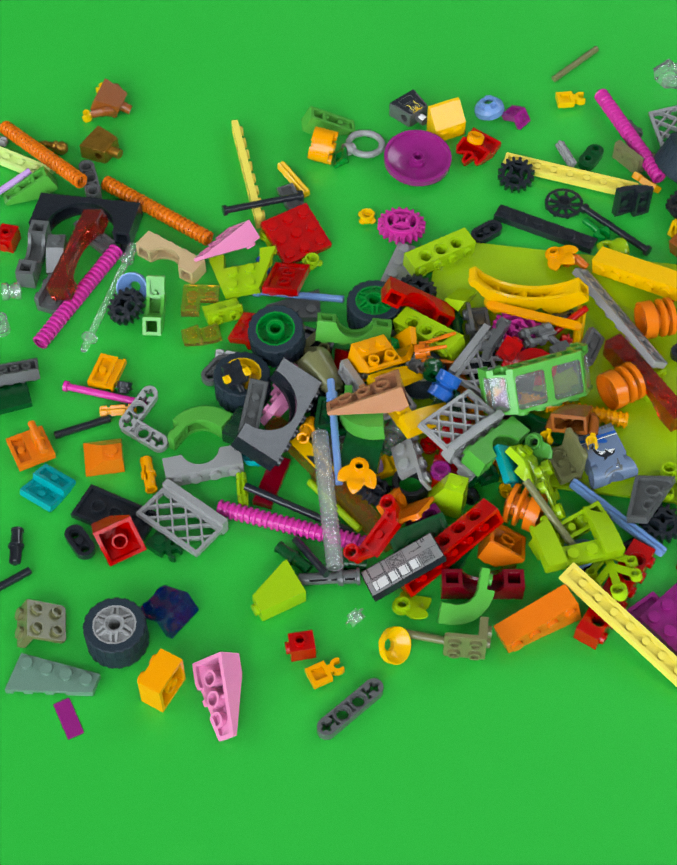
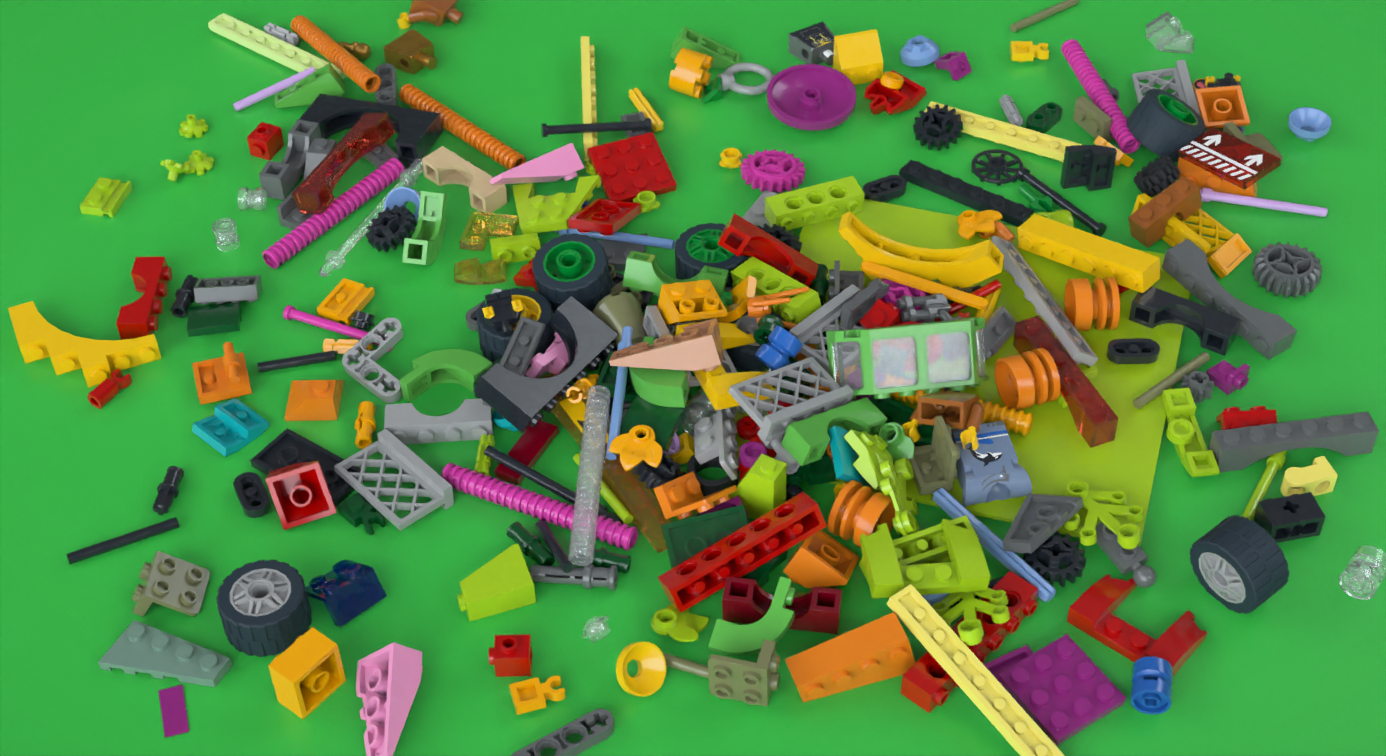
camera: 10 degrees right, 10 degrees down
(379, 535) = (648, 523): red plate -> none
(403, 566) = (673, 568): tile -> none
(460, 297) = (826, 257): lime slope -> none
(548, 512) = (889, 517): olive bar -> none

